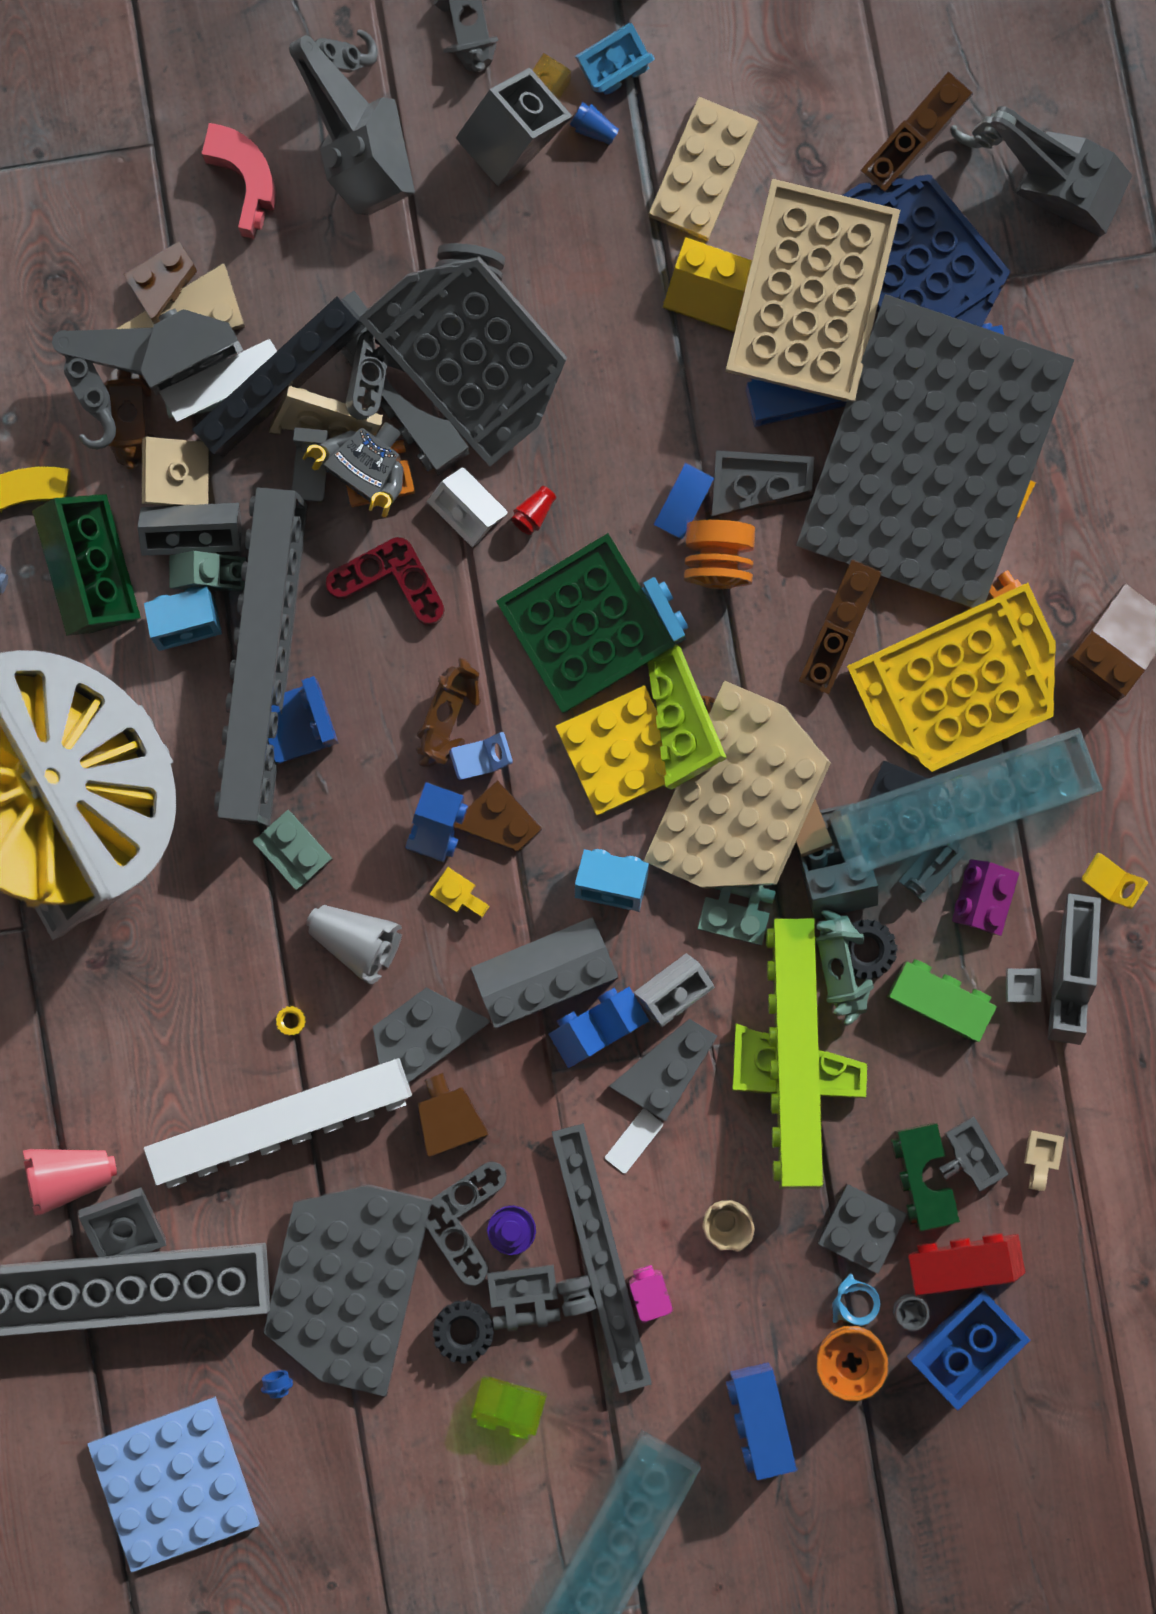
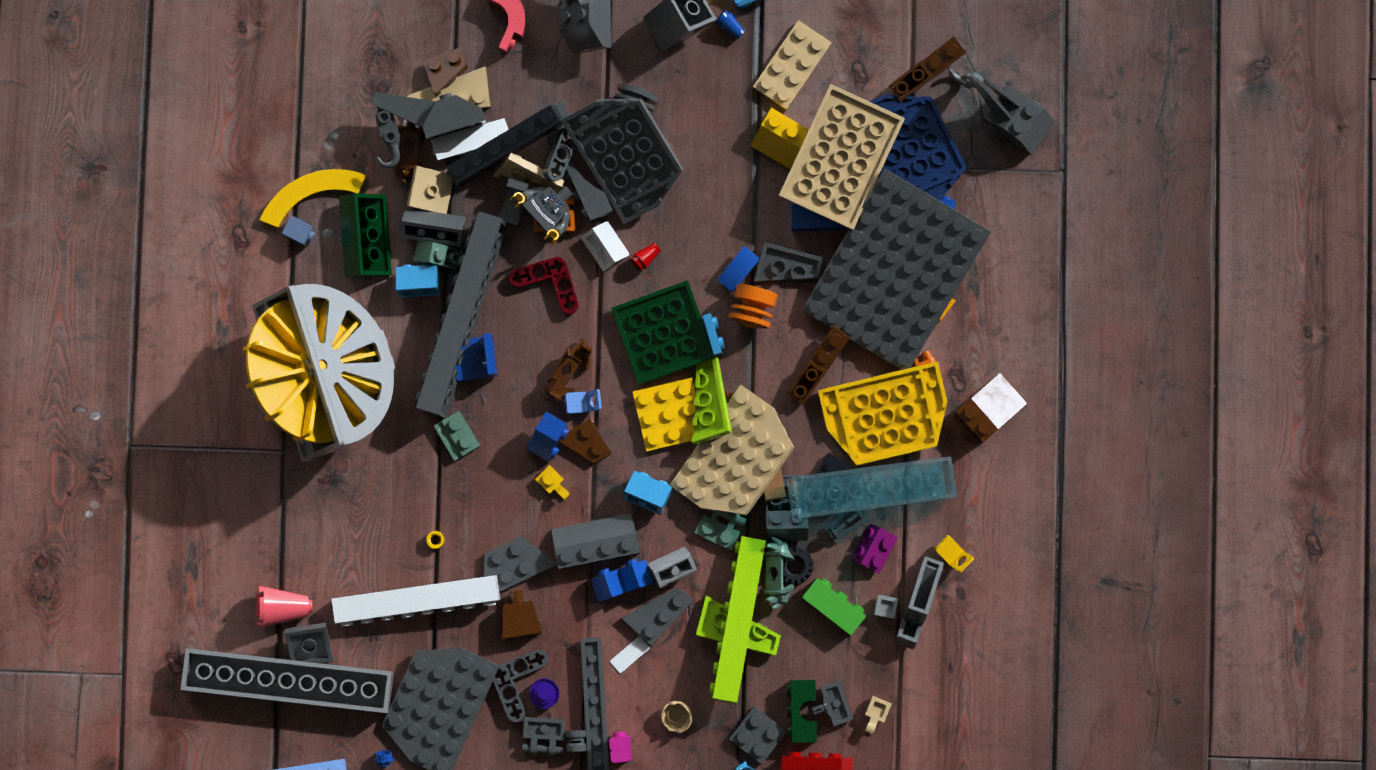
camera: 10 degrees right, 0 degrees up
(356, 939) = (484, 498): light grey cone -> none
(448, 1346) = (493, 758): black tyre -> none

